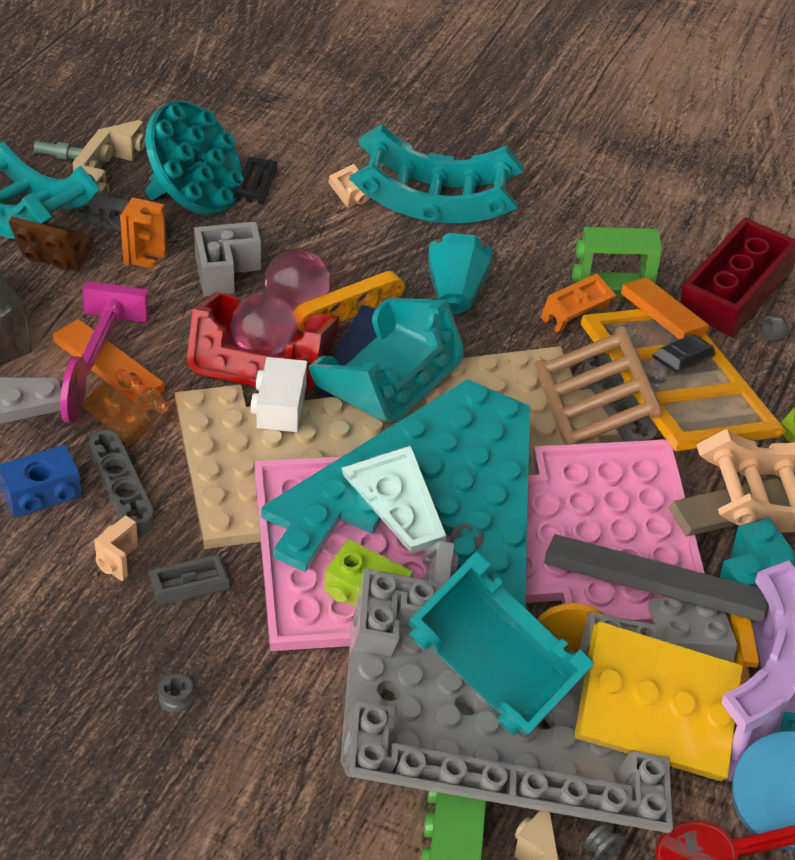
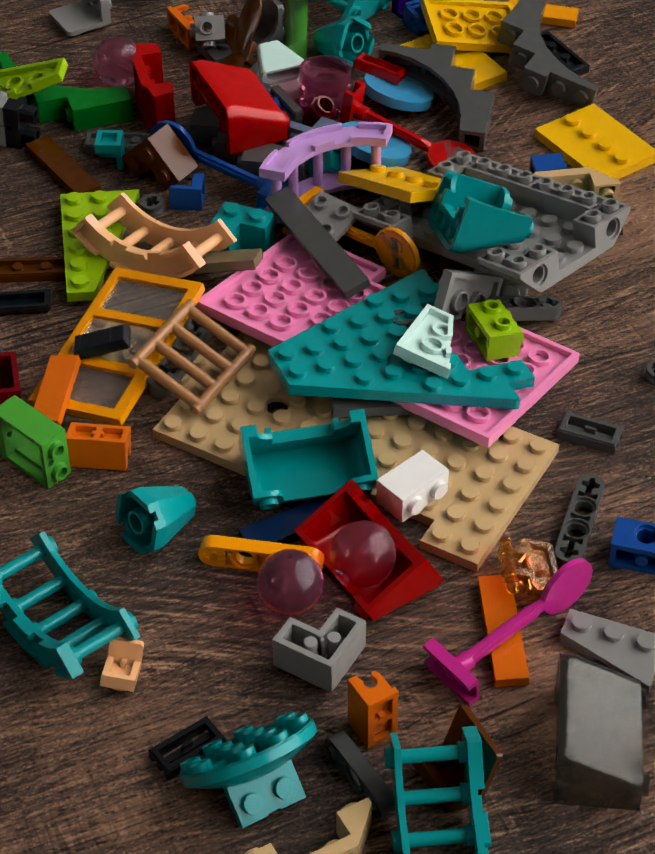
camera: 135 degrees left, 0 degrees up
(115, 545) = (627, 469): light nougat bracket -> none

